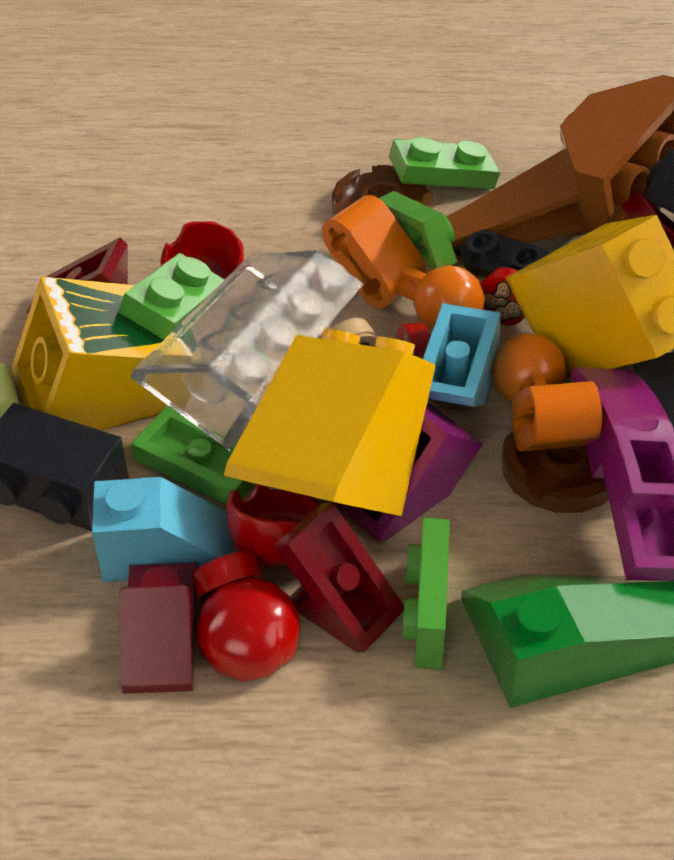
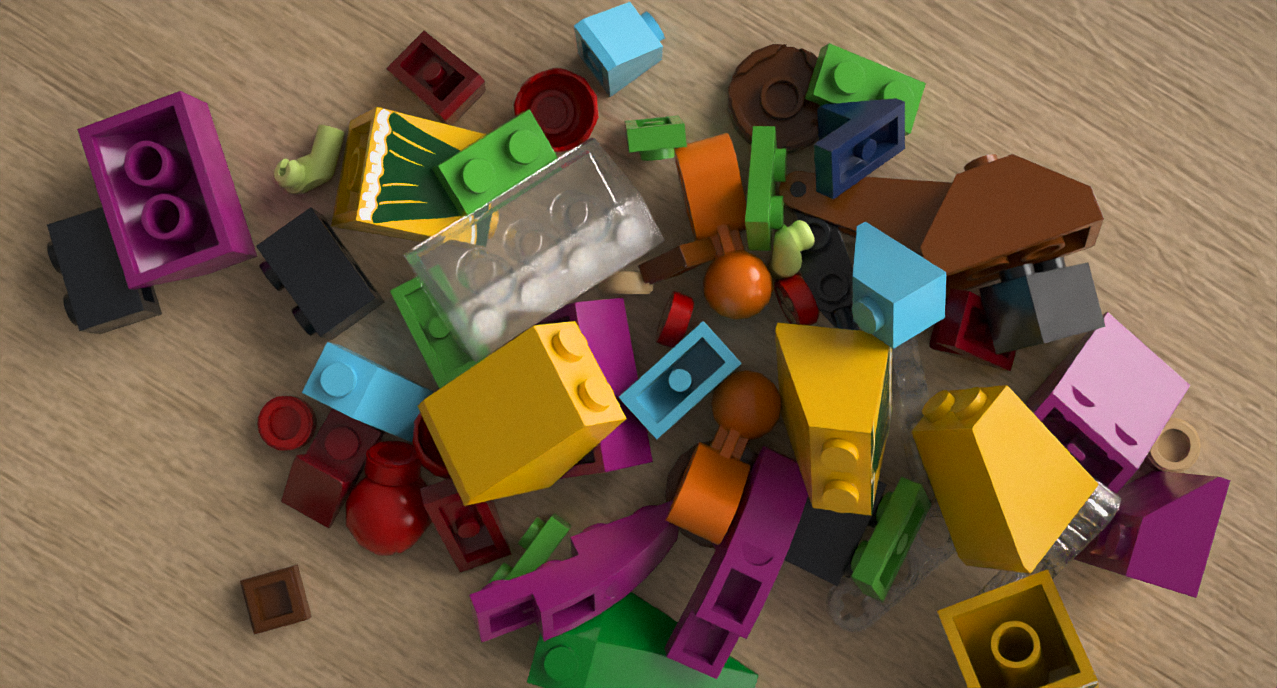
camera: 30 degrees right, 40 degrees up
(85, 614) = (286, 423): none -> red tile
(173, 785) = (275, 599): none -> reddish brown tile
(226, 198) = (619, 45): none -> medium azure slope
(301, 218) = (655, 137): none -> bright green plate
(384, 297) = (677, 261): none -> reddish brown tile
(460, 178) = (856, 141): none -> dark blue slope
(472, 249) = (787, 246): none -> yellowish green arm
(486, 557) = (564, 594): none -> magenta slope
(575, 204) = (894, 288): none -> medium azure slope

